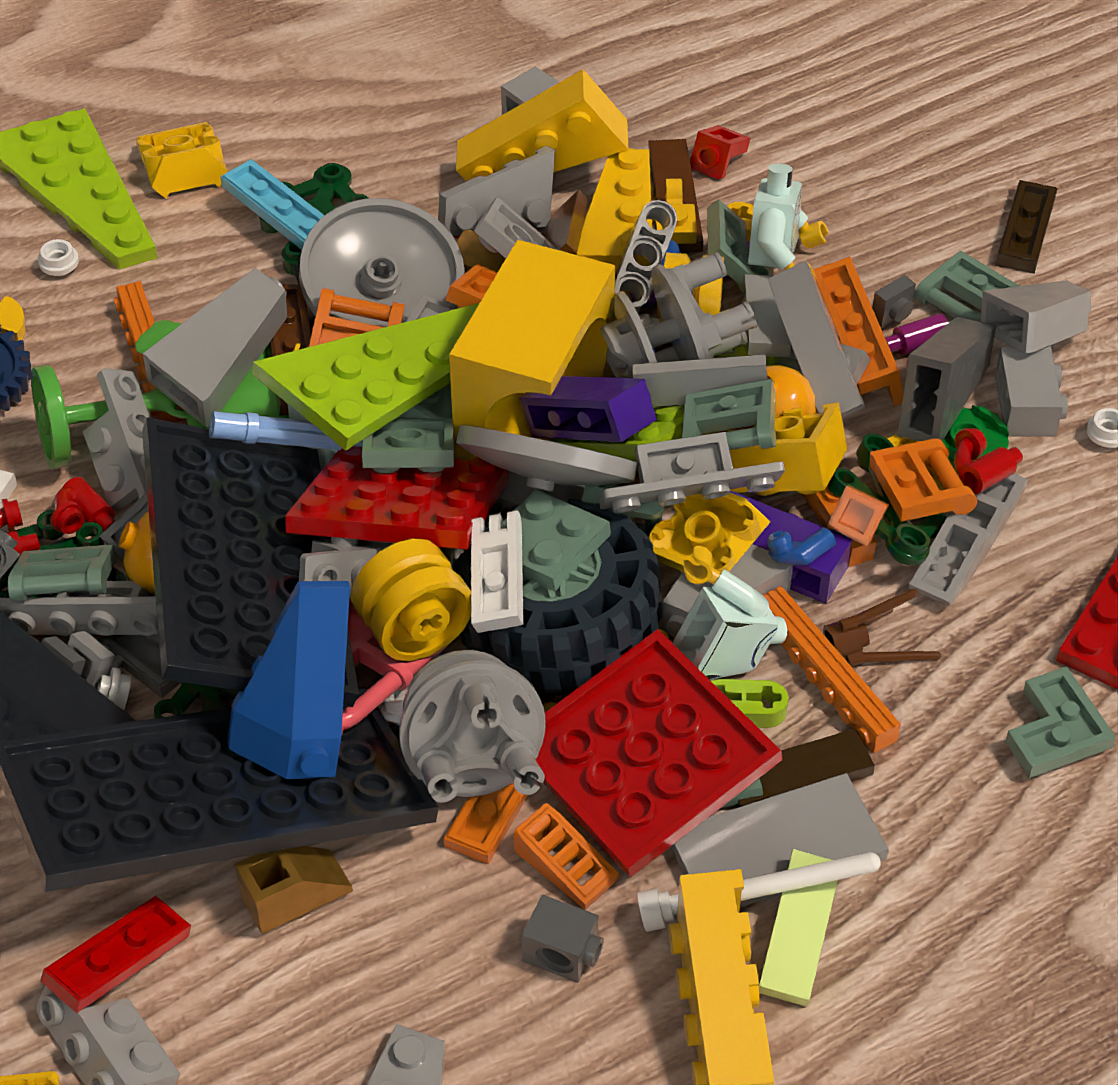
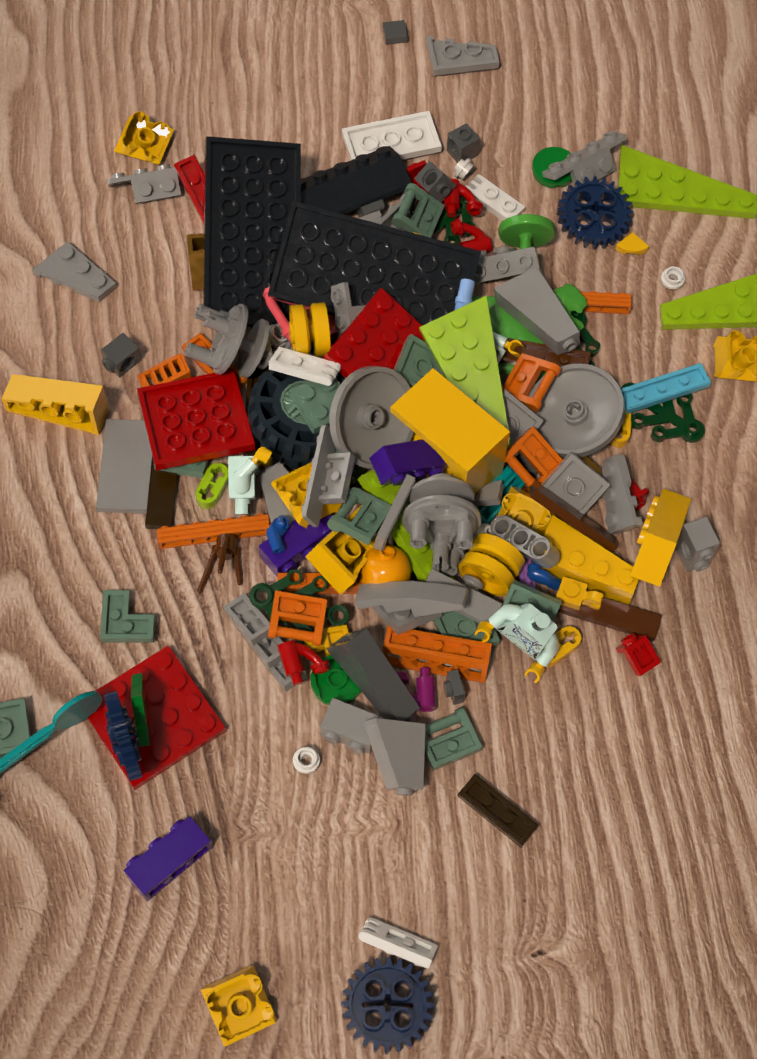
camera: 110 degrees right, 15 degrees up
(296, 693) = (260, 263): blue wedge -> none
(661, 907) = (115, 399): white piece -> none
(797, 937) = (76, 451): yellowish green tile -> none
(857, 515) = (284, 570): orange tile -> none

